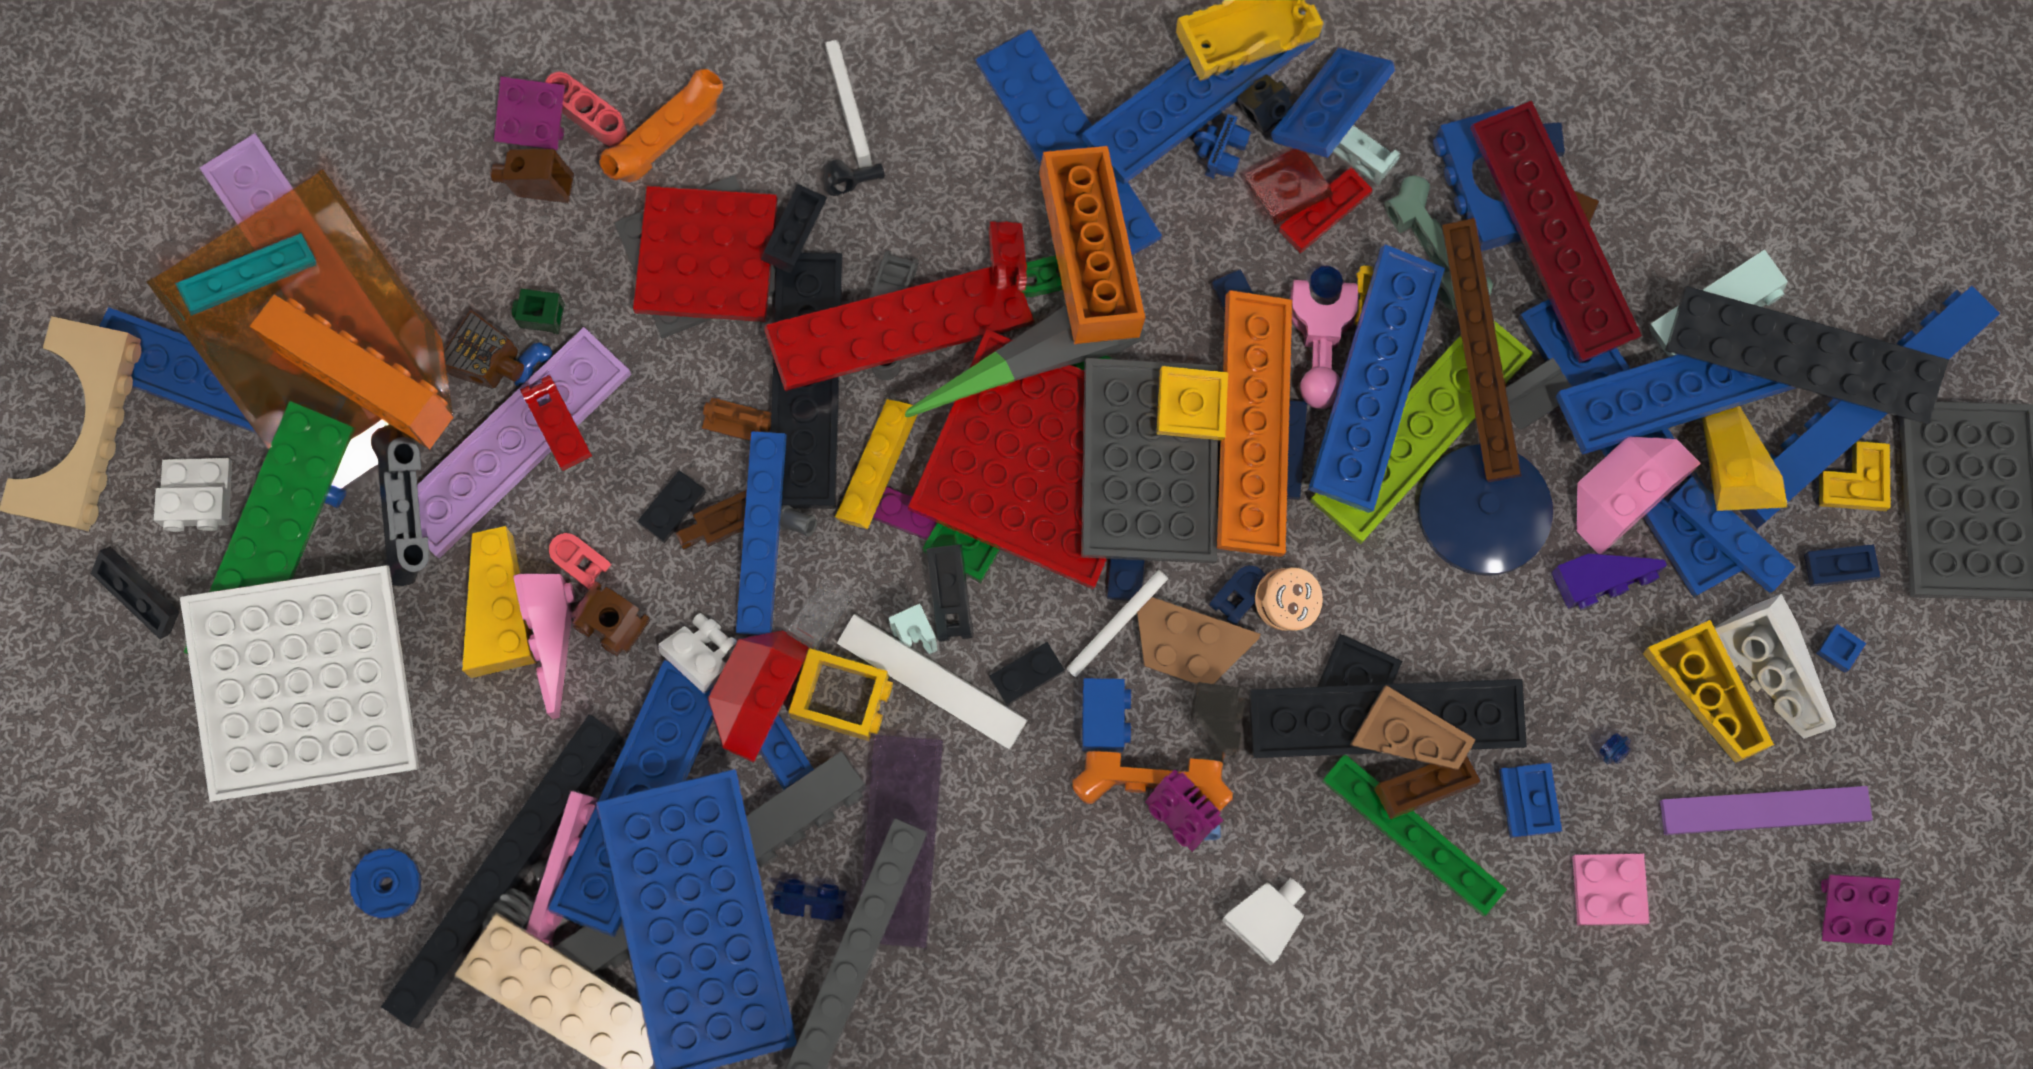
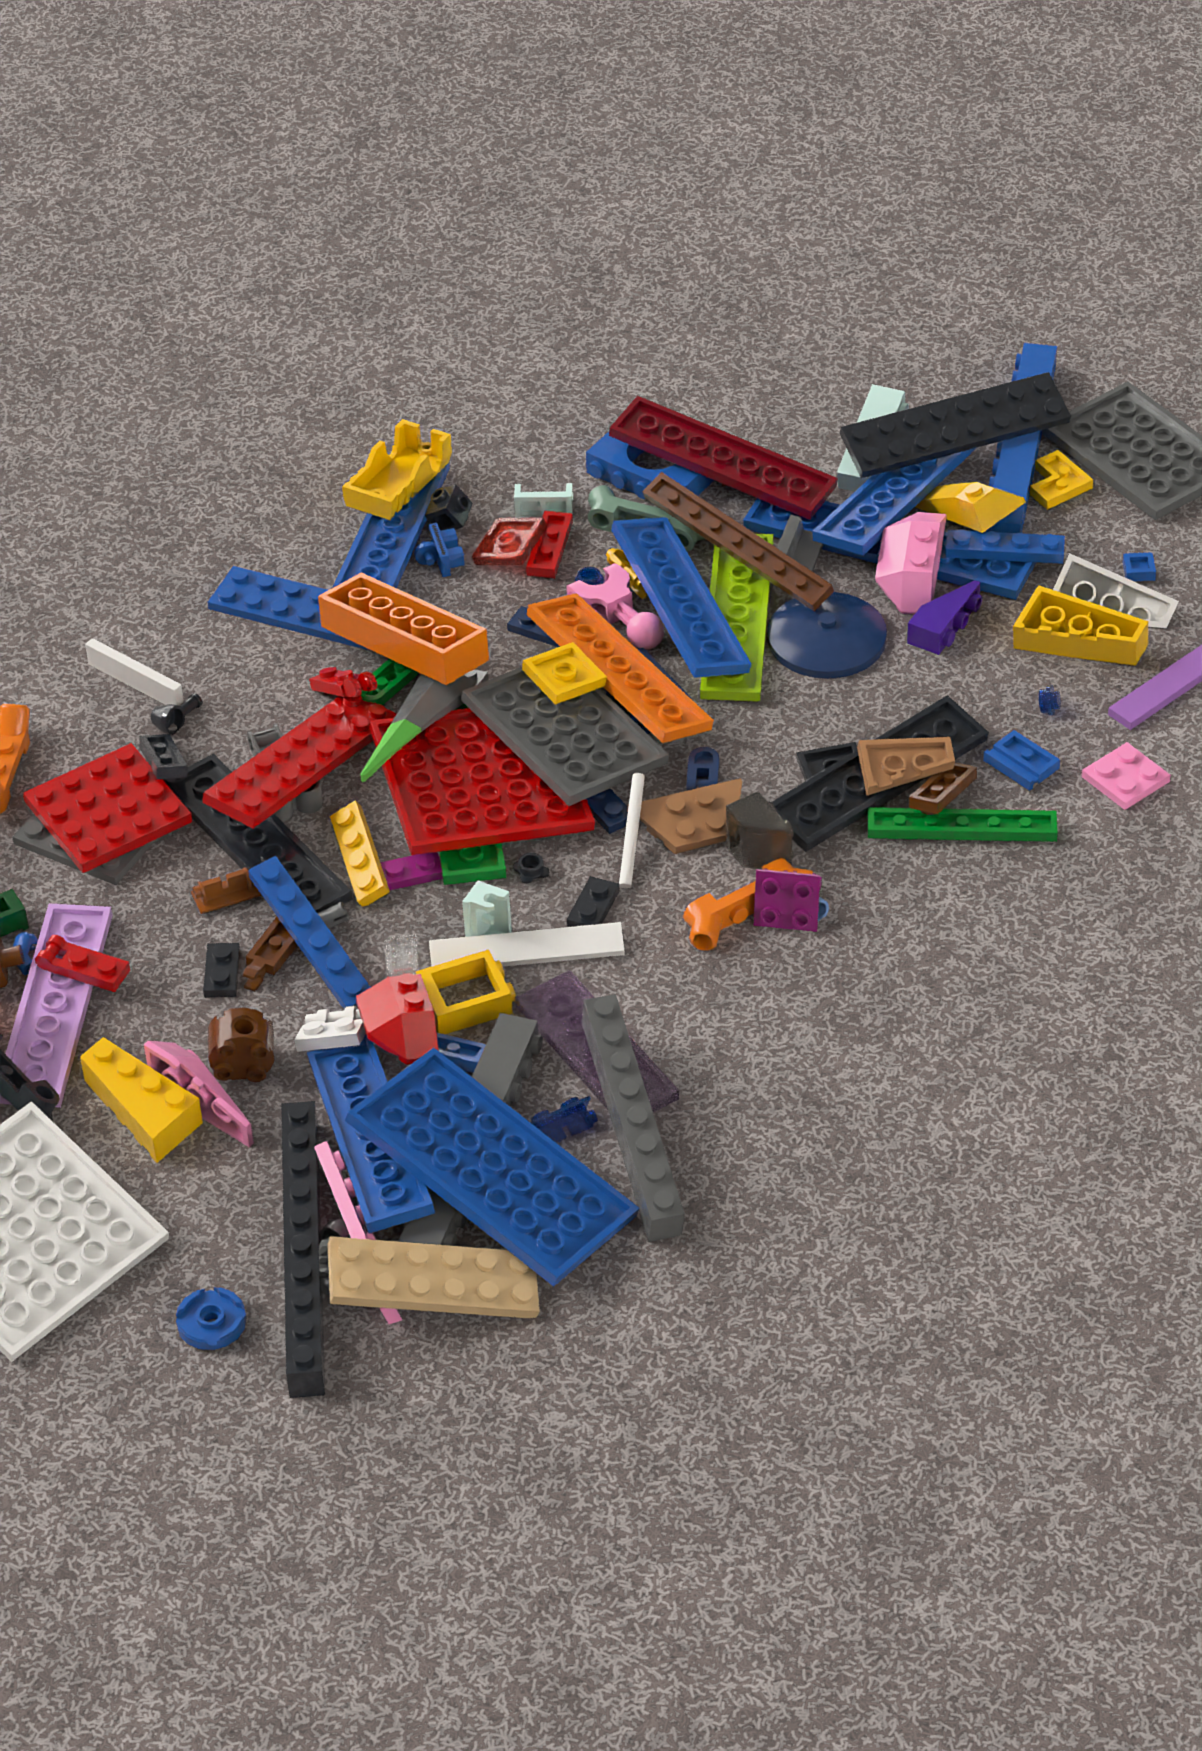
camera: 35 degrees left, 30 degrees down
(569, 551) = (174, 1031): coral plate -> none
(949, 591) = (474, 866): black plate -> none
(1004, 582) = (530, 867): none -> black plate
(1104, 715) = (671, 886): blue brick -> none
(1267, 919) = (909, 928): white torso -> none
(1289, 599) = (741, 748): light nougat head -> none
(1333, 102) = (497, 481): blue plate -> none
(1842, 565) = (1094, 527): dark blue plate -> none

